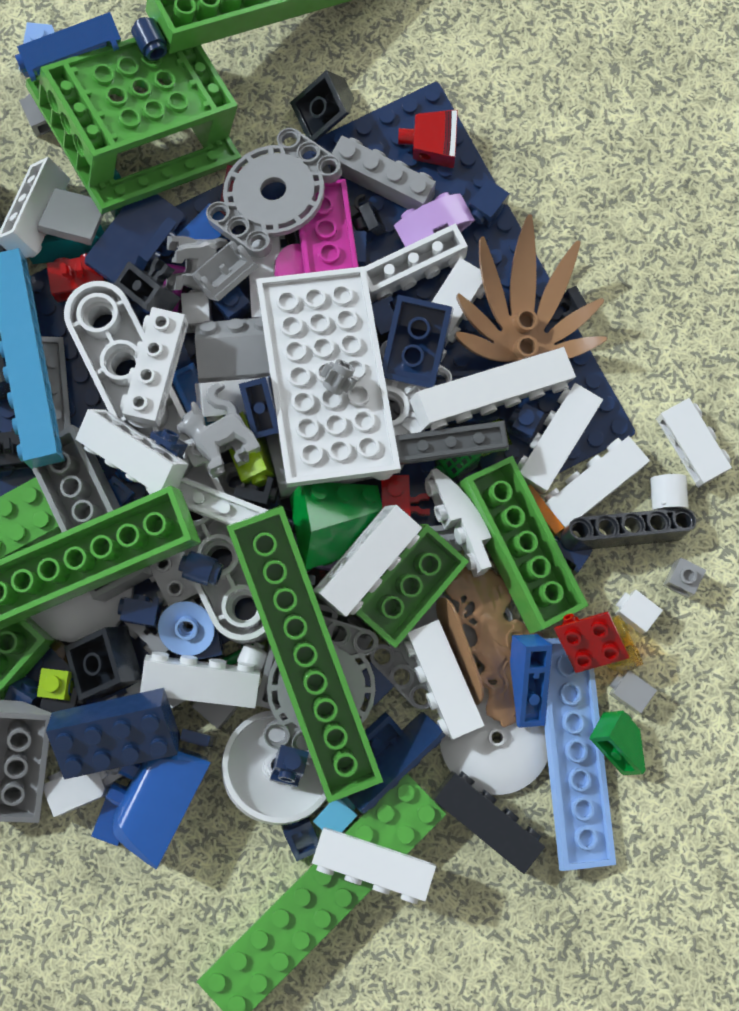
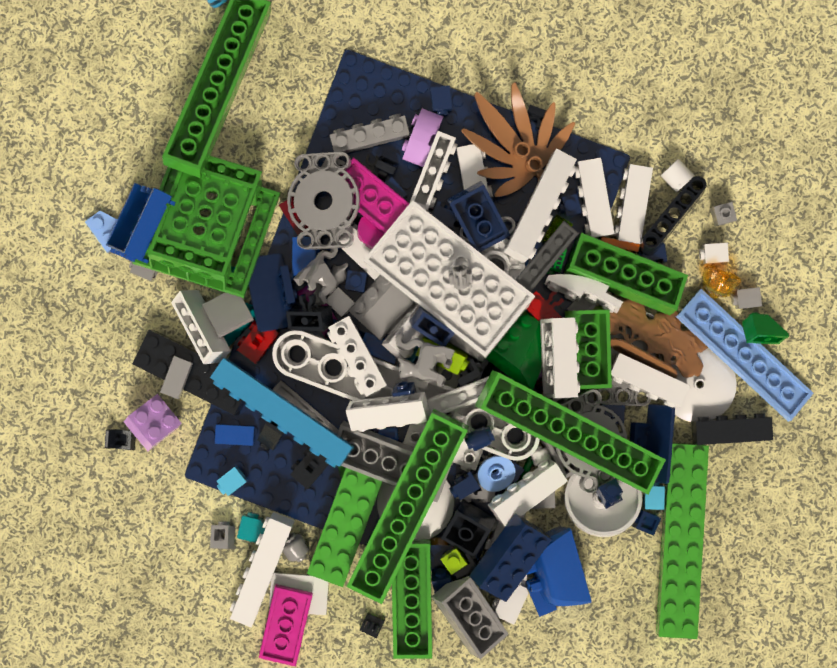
camera: 45 degrees left, 10 degrees up
(149, 38) = (184, 180): dark blue brick -> none
(198, 738) = (550, 521): dark blue tile -> none
(224, 271) = (340, 270): light grey hinge -> none
(323, 104) = (299, 123): black slope -> none
(373, 864) = (696, 503): white brick -> none
(433, 137) = (377, 88): red torso -> none
(530, 678) = (691, 339): blue slope -> none
(591, 641) = (706, 294): red hinge -> none
(694, 442) = (666, 134): white brick -> none

